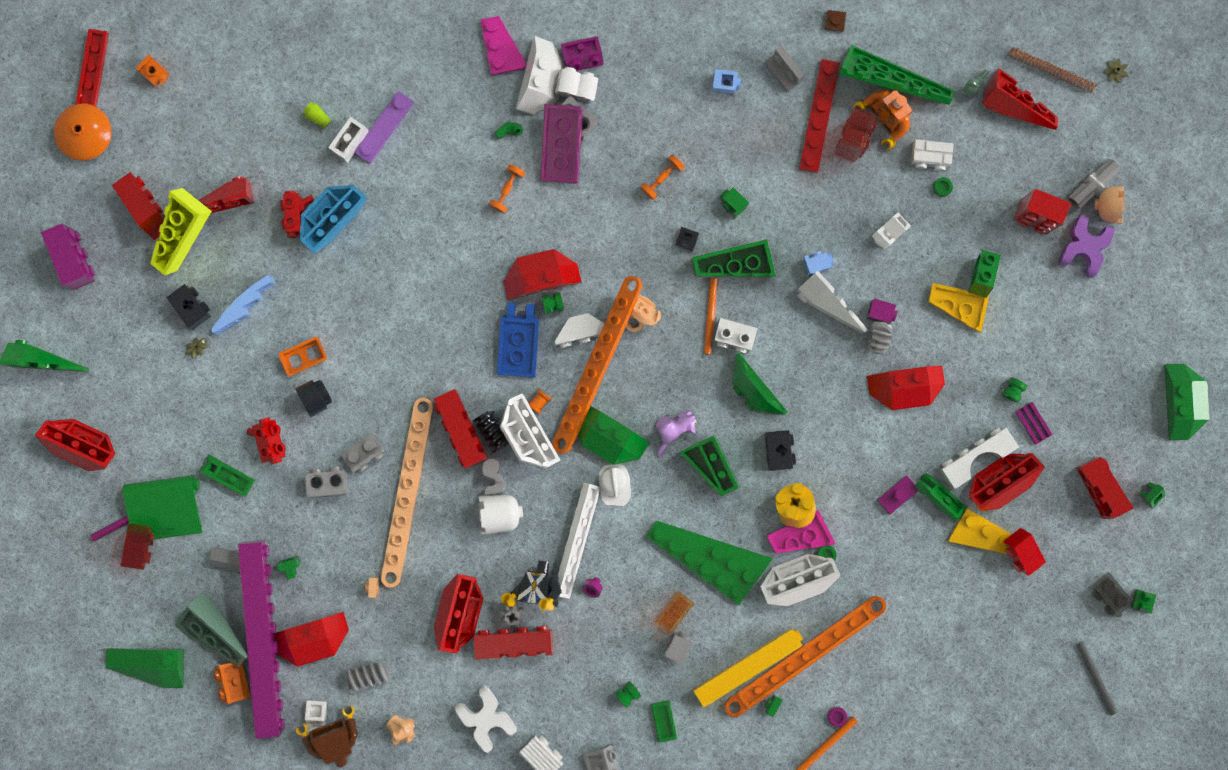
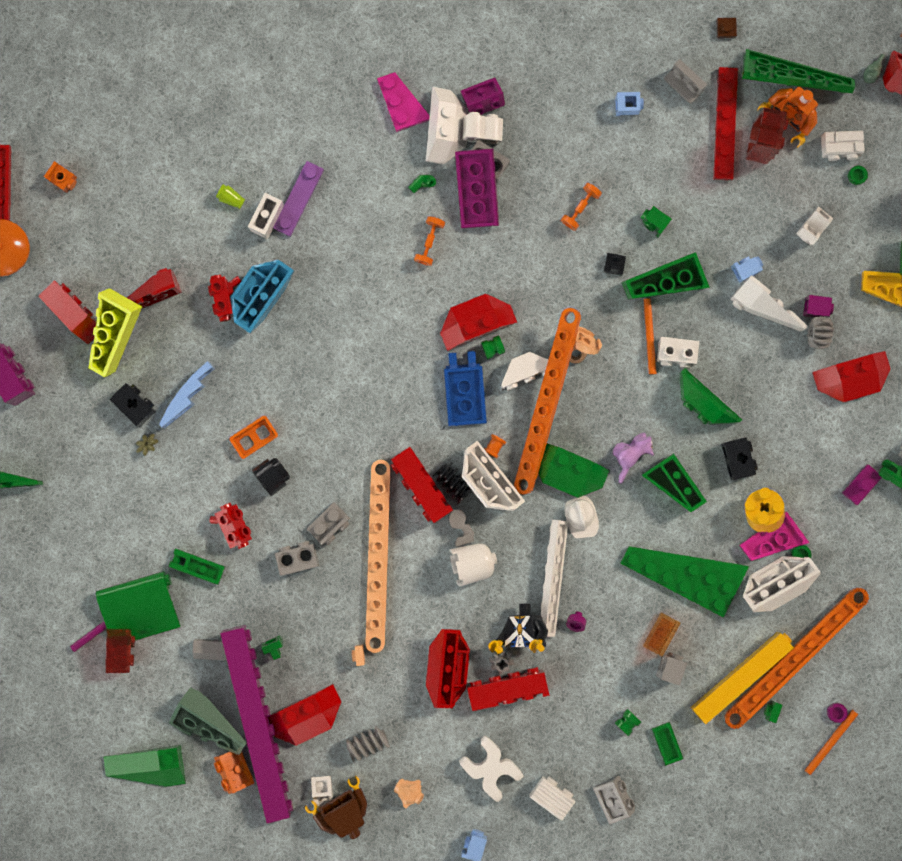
camera: 10 degrees left, 0 degrees up
(77, 443) = (43, 558): red wedge -> none

